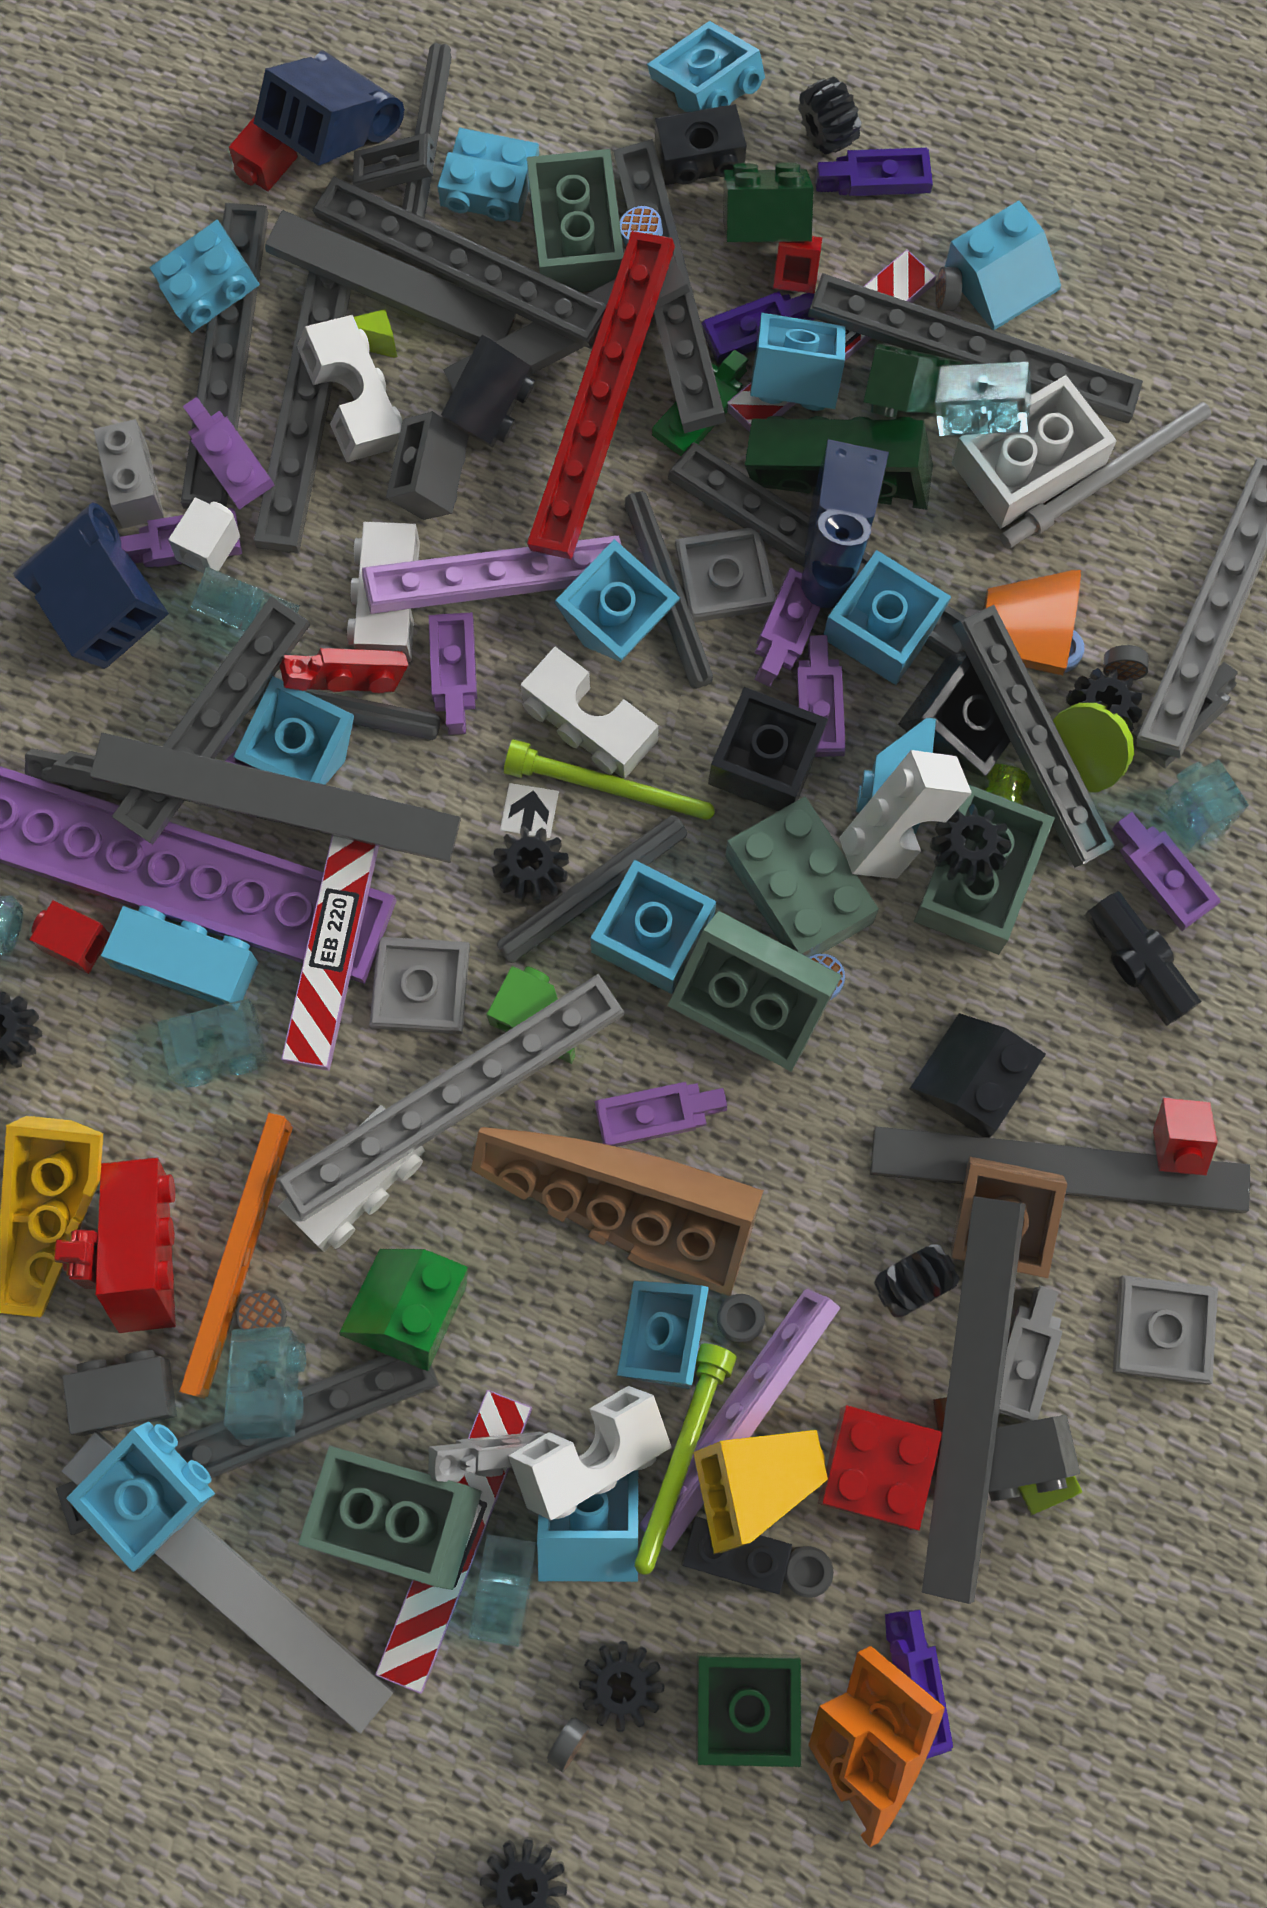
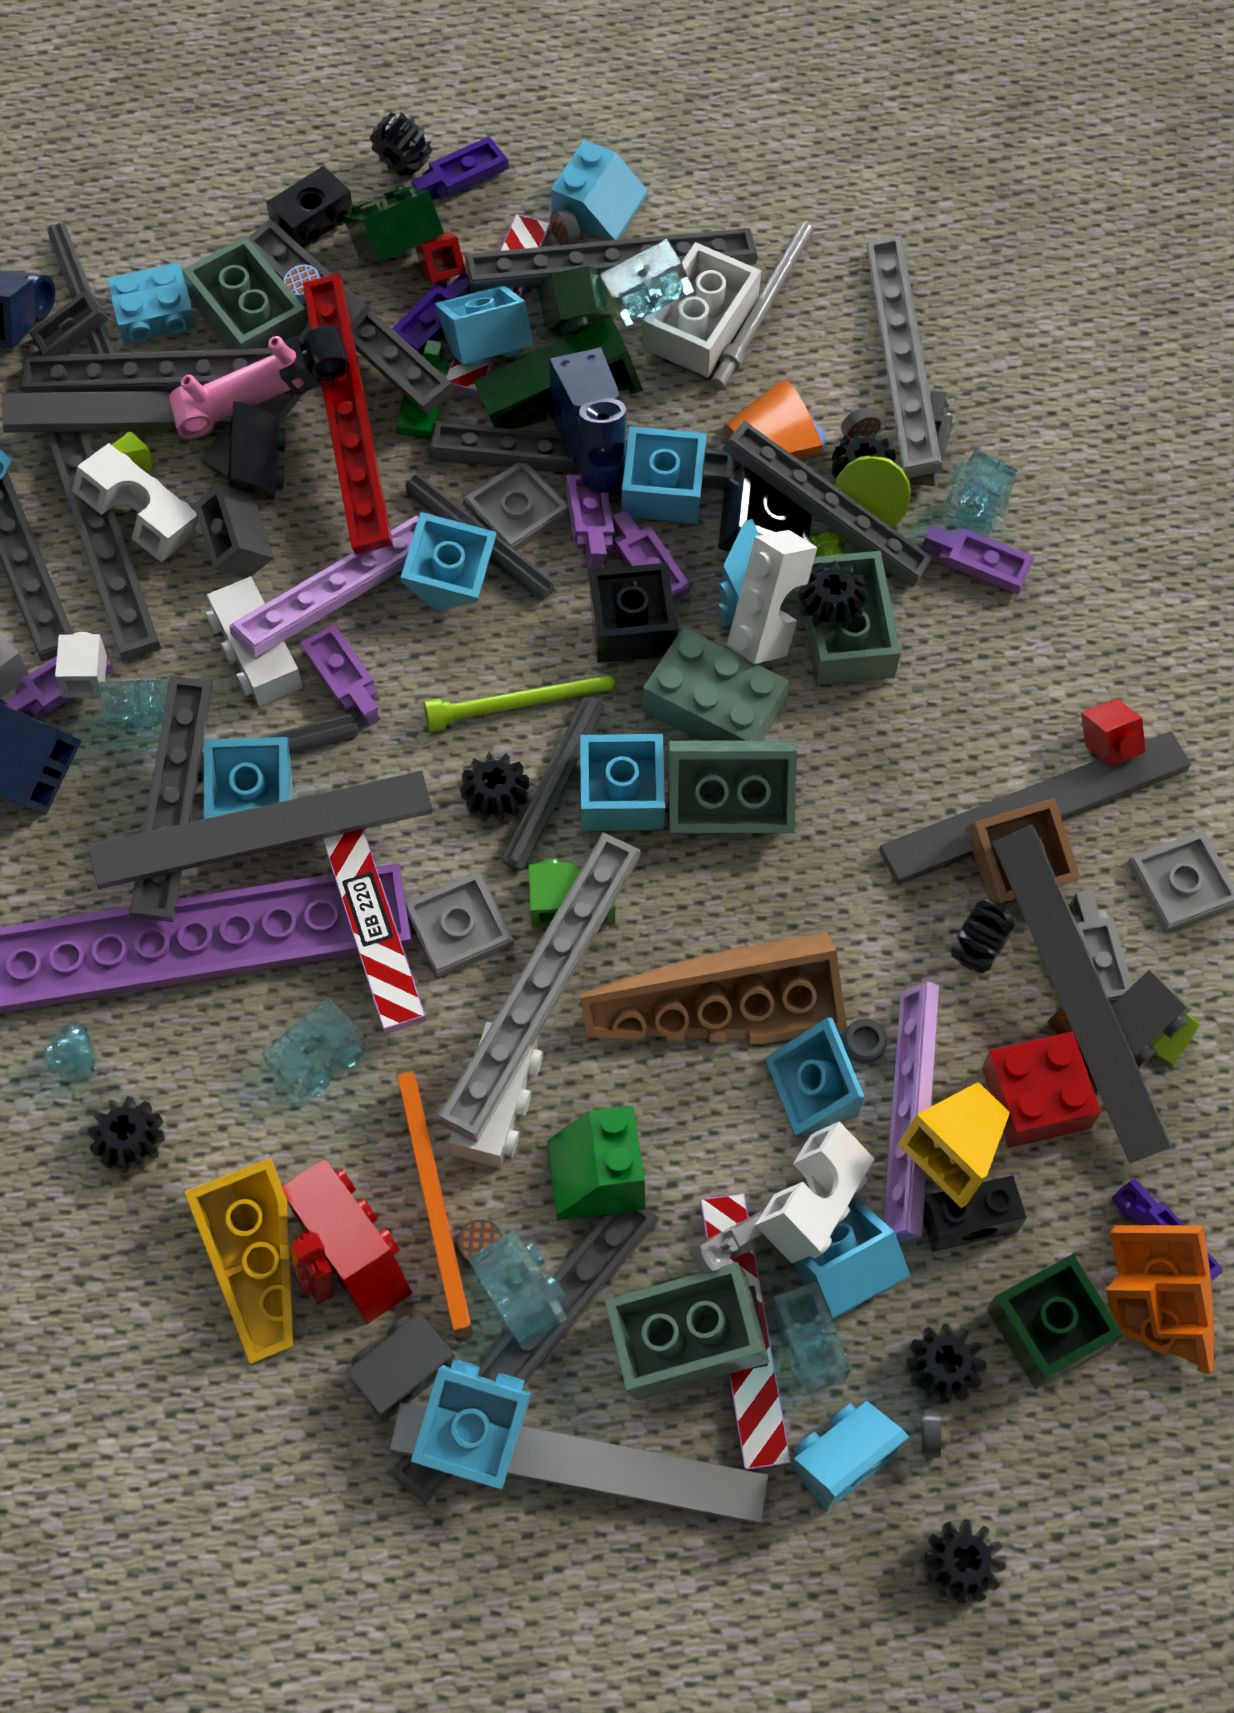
camera: 30 degrees left, 10 degrees down
(69, 769) = (75, 900): dark grey hinge -> none
(69, 936) = (142, 1030): red brick -> none
(180, 956) = (246, 999): medium azure brick -> none
(227, 455) = (59, 598): medium lavender hinge -> none
(344, 670) = (259, 710): red hinge -> none
(472, 1720) = (847, 1453): none -> medium azure slope
(529, 808) = (462, 748): white sticker -> none
(560, 318) = (291, 367): none -> bright pink piece
(614, 740) = (502, 665): white arch -> none
(656, 1113) = (707, 920): medium lavender hinge -> none
(708, 69) = (284, 152): medium azure plate -> none
(713, 1366) = (872, 1084): lime piece -> none
(809, 1571) = (1037, 1199): dark grey tile -> none
(977, 1073) = (934, 766): black slope -> none
(1142, 958) = (1002, 625): black piece -> none

